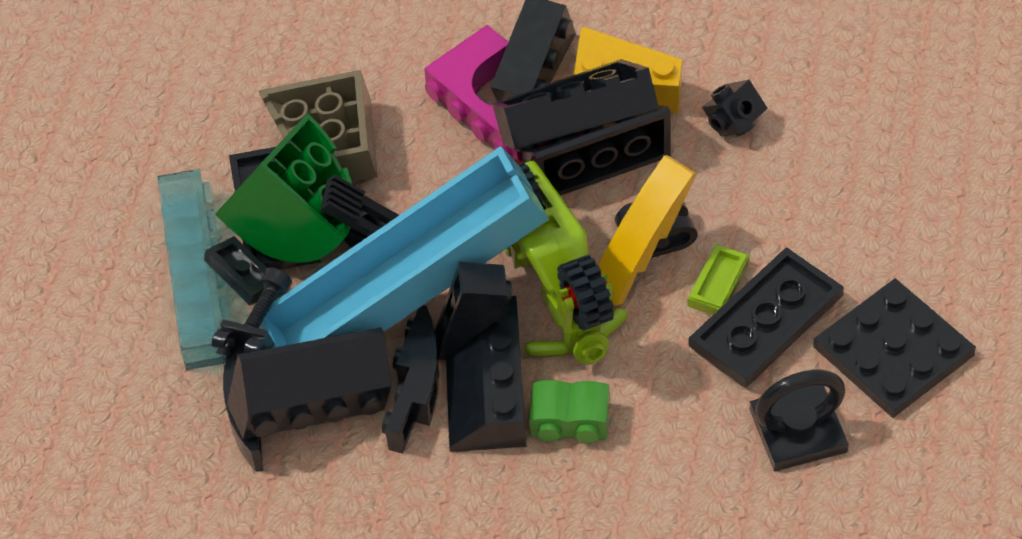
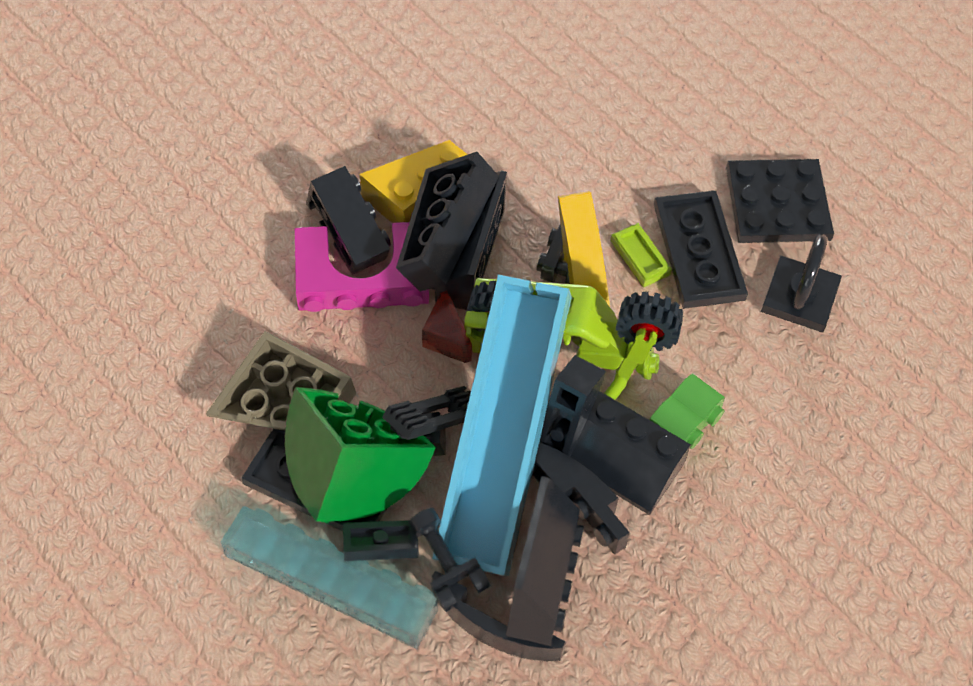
camera: 60 degrees left, 5 degrees up
(734, 108) = (511, 143): black brick -> none

